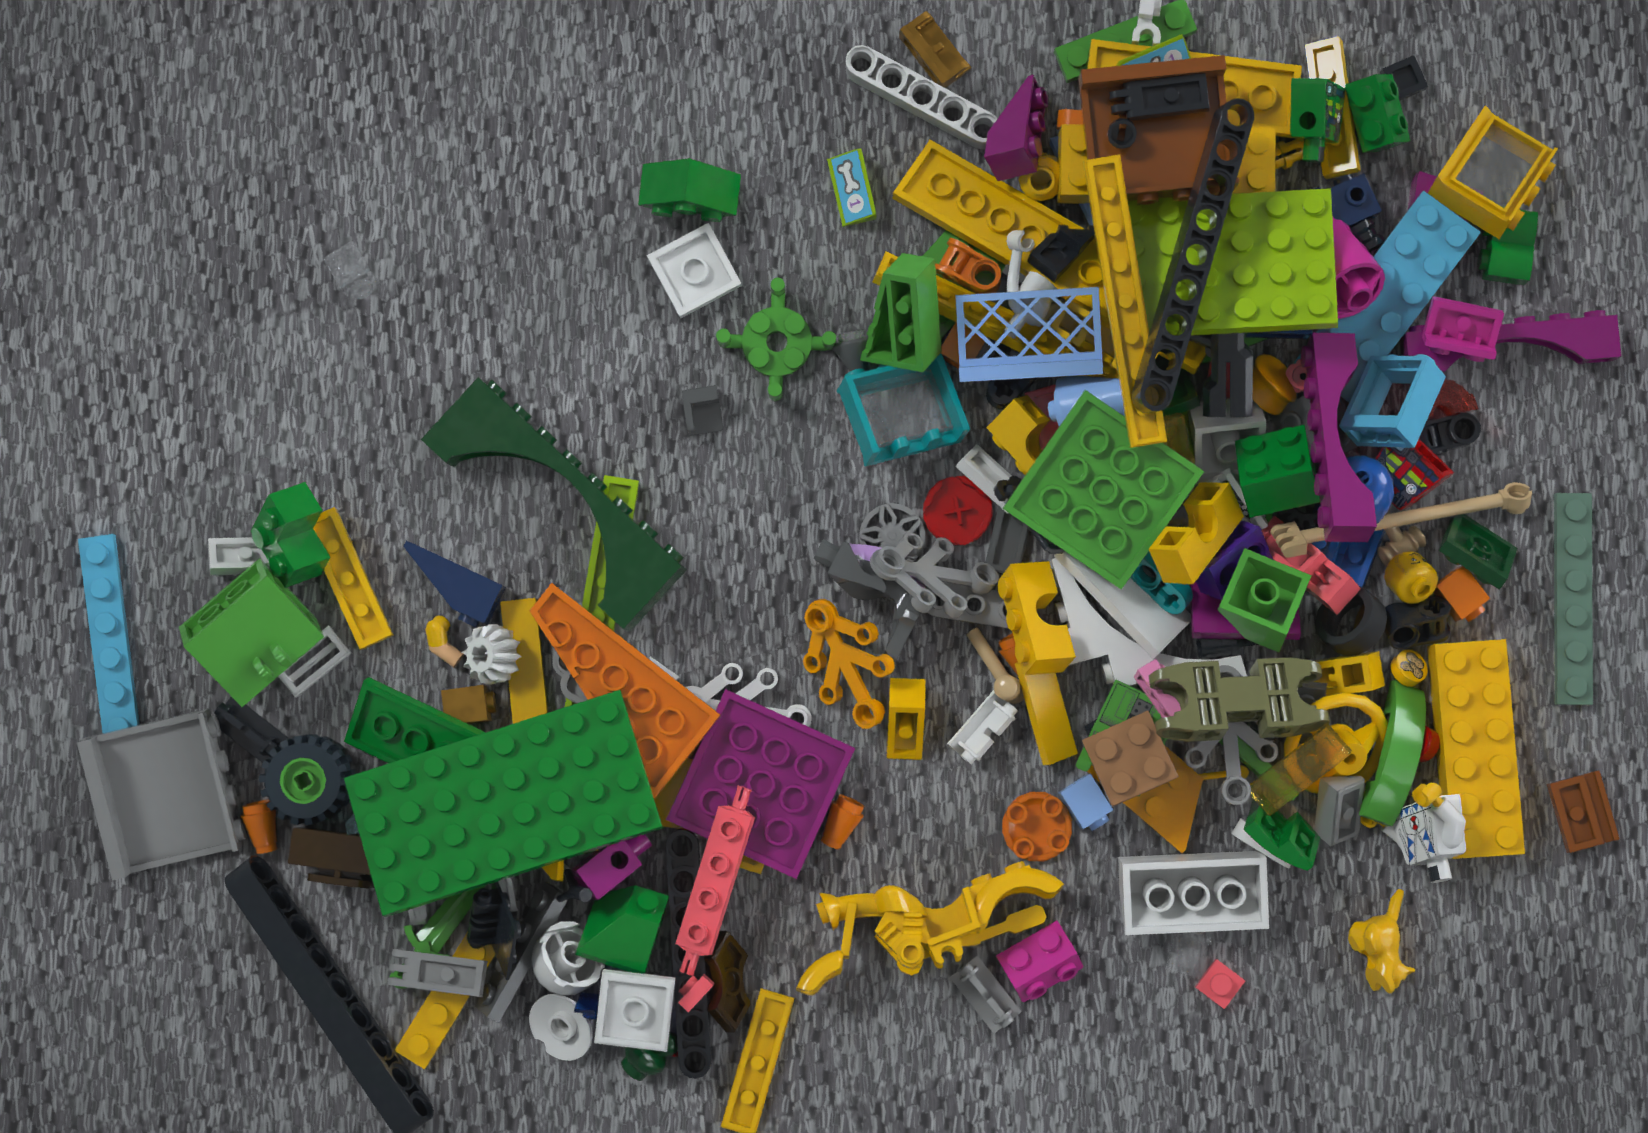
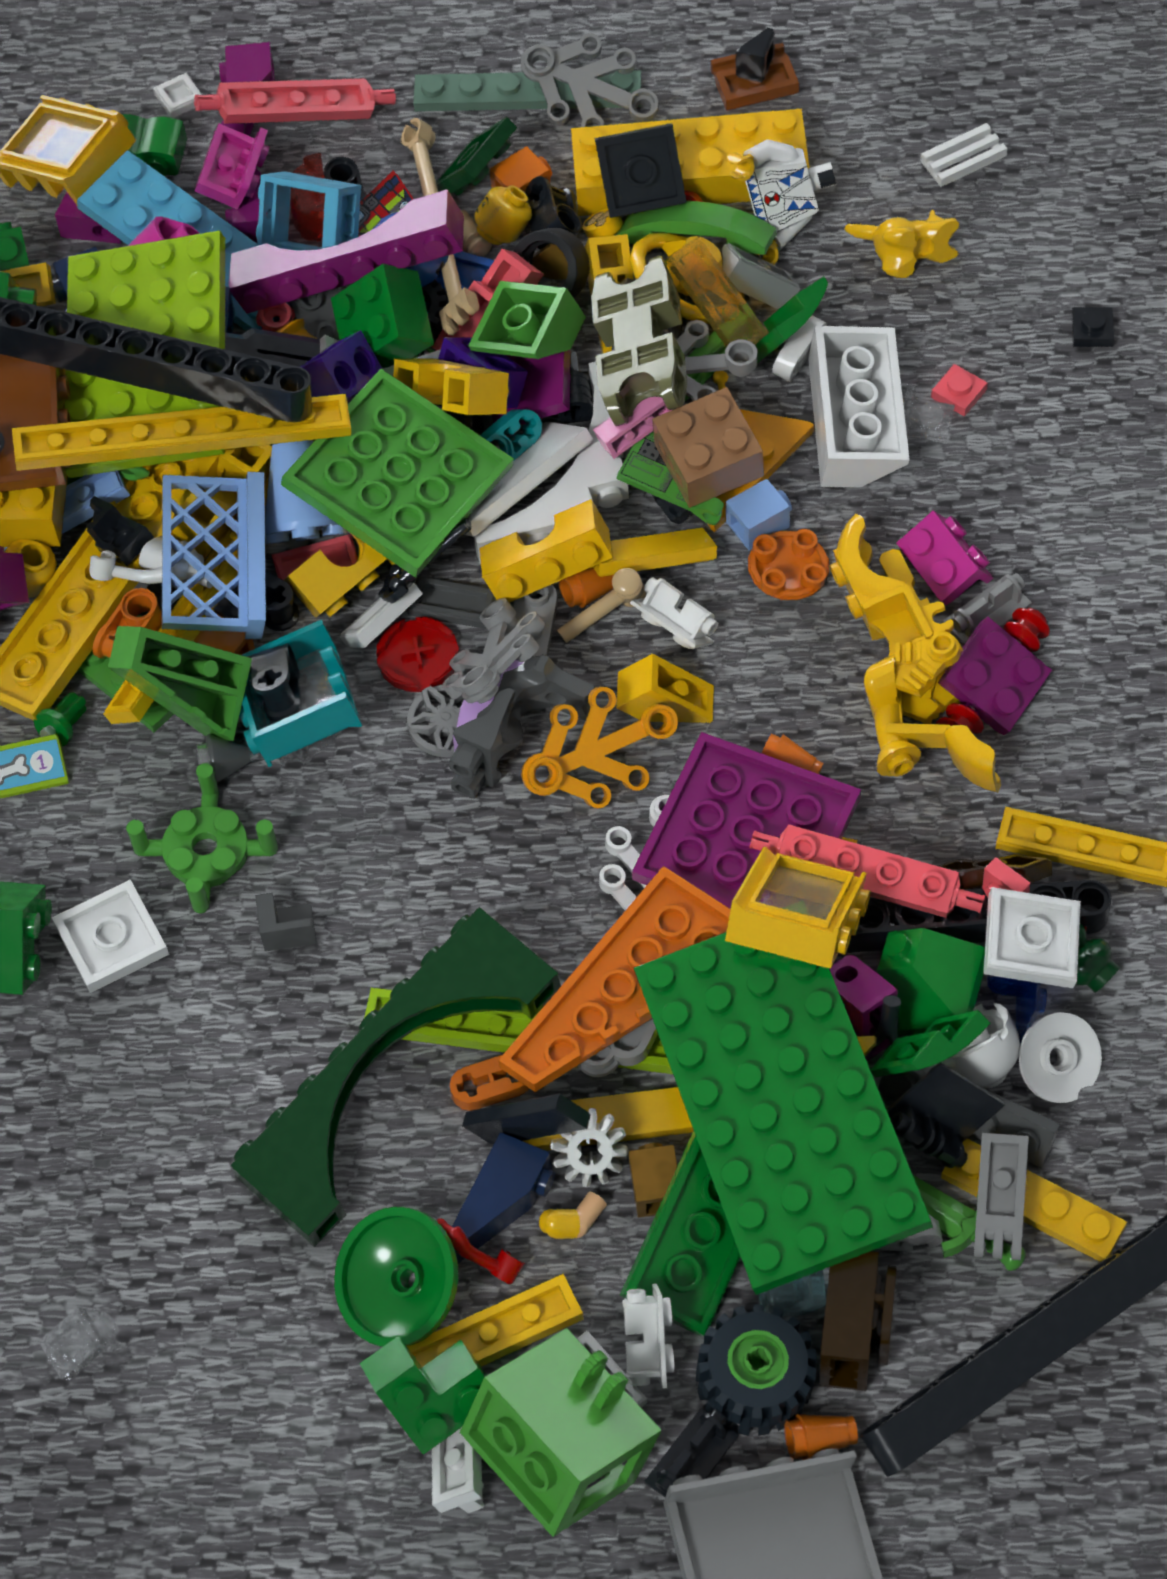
camera: 90 degrees left, 25 degrees down
(331, 695) = (651, 1355): none -> white hinge
(379, 496) = (376, 1271): none -> green dish
(402, 586) = (503, 1267): none -> red piece
(504, 605) = (527, 1119): none -> black tile
(541, 923) = (939, 1042): none -> green slope
(566, 569) = (488, 1093): none -> orange beam
(659, 823) = (797, 909): none -> yellow window
(898, 216) = (61, 718): none -> green piece
(912, 393) = (277, 679): none -> black piece
(915, 998) = (997, 673): none -> magenta plate
(1210, 434) = (343, 367): none -> dark purple brick
(1286, 1107) = (1092, 327): none -> black plate
(1443, 703) = (640, 170): none -> black hinge
(1502, 1029) = (960, 149): none -> white tile
(1549, 383) = (294, 100): none -> coral plate
(1571, 650) = (584, 80): none -> light grey plant
(1574, 274) = (177, 95): none -> white tile
(1590, 814) = (756, 56): none -> black slope

